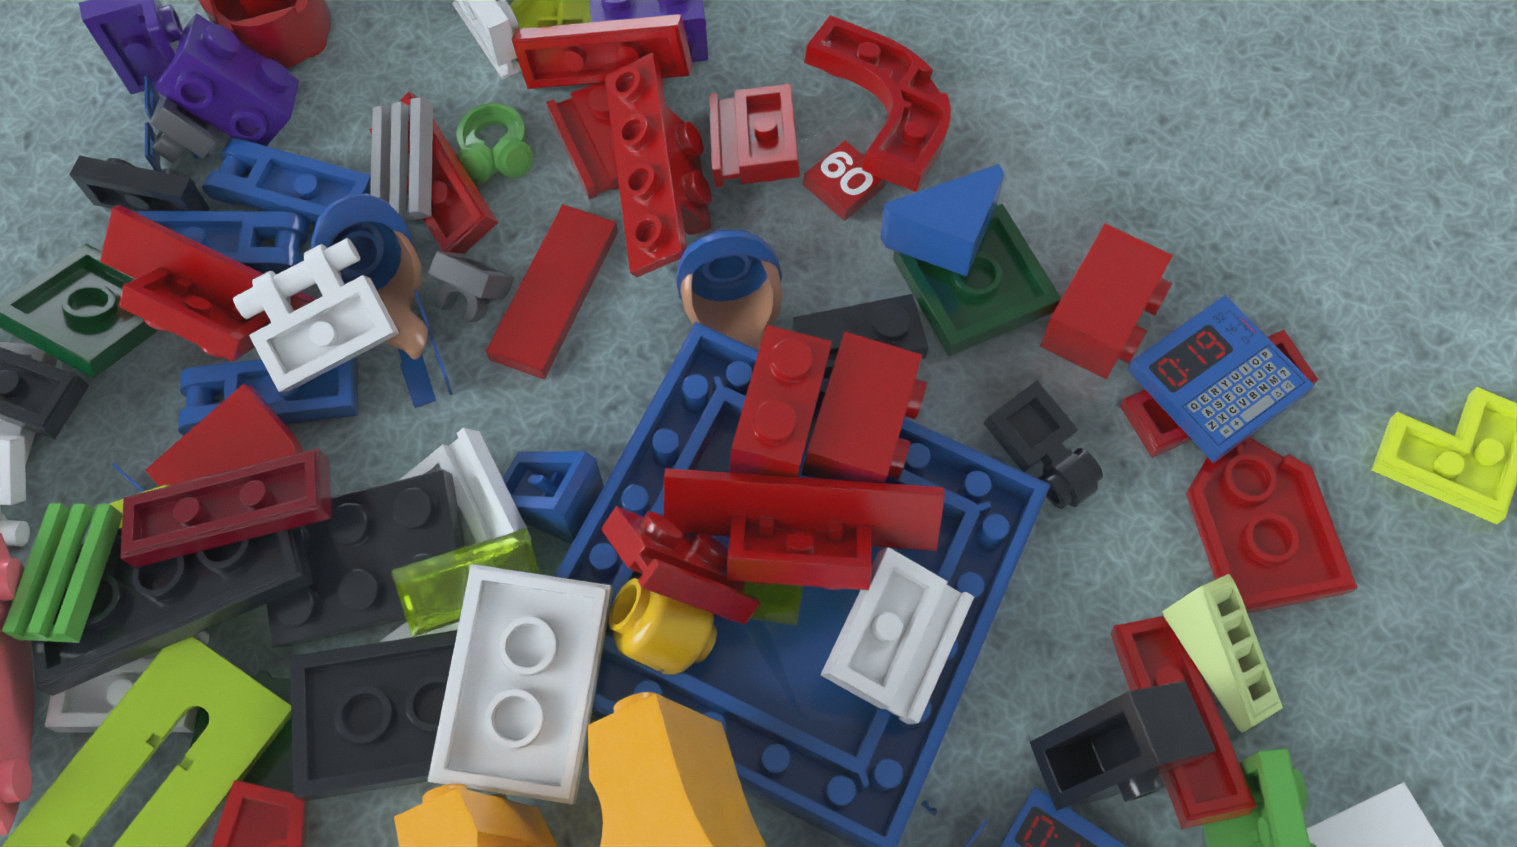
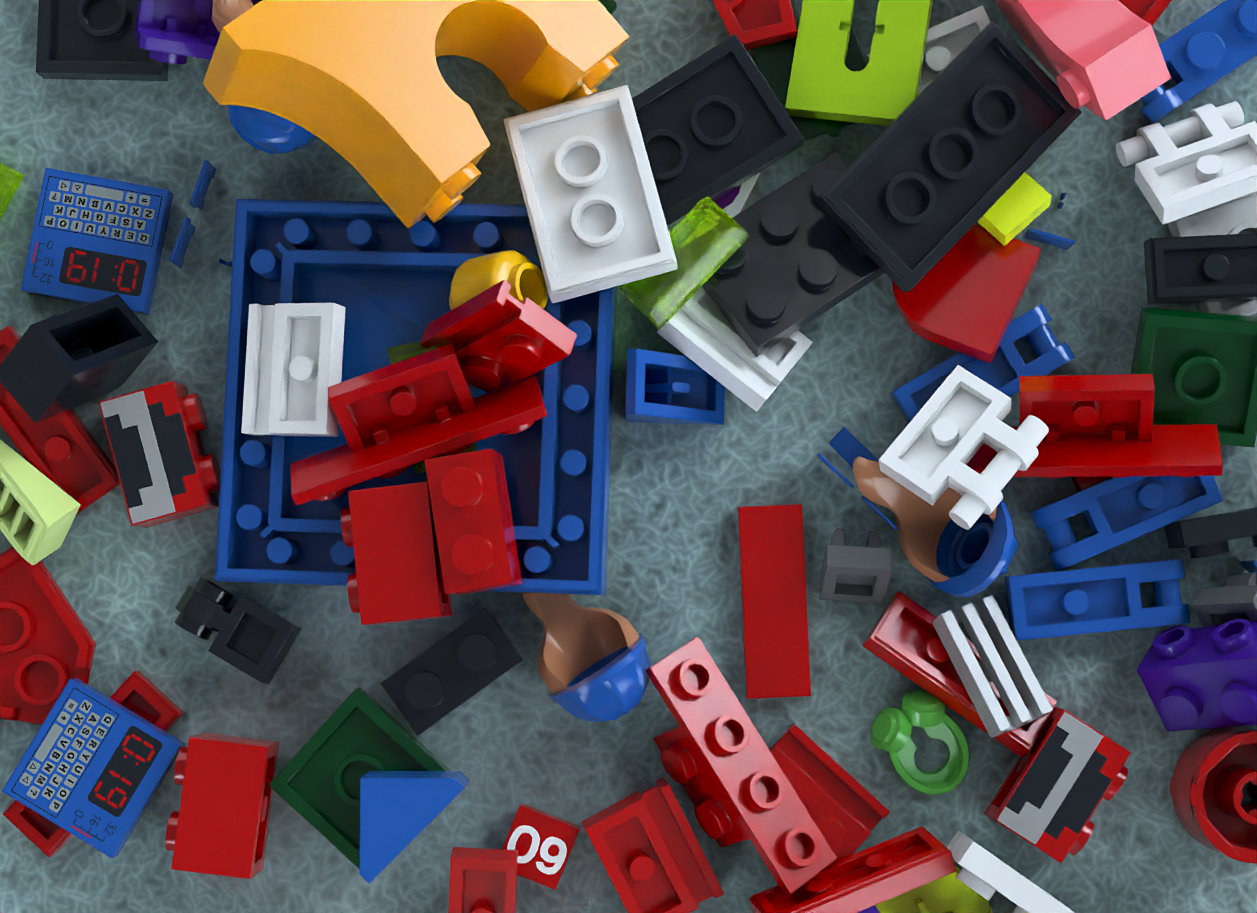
camera: 160 degrees right, 20 degrees up
(53, 569) = (1055, 109): bright green tile -> none
(226, 508) = (922, 225): dark red tile -> none
(409, 56) = (1060, 785): none -> brick
(1063, 631) = (161, 453): none -> brick

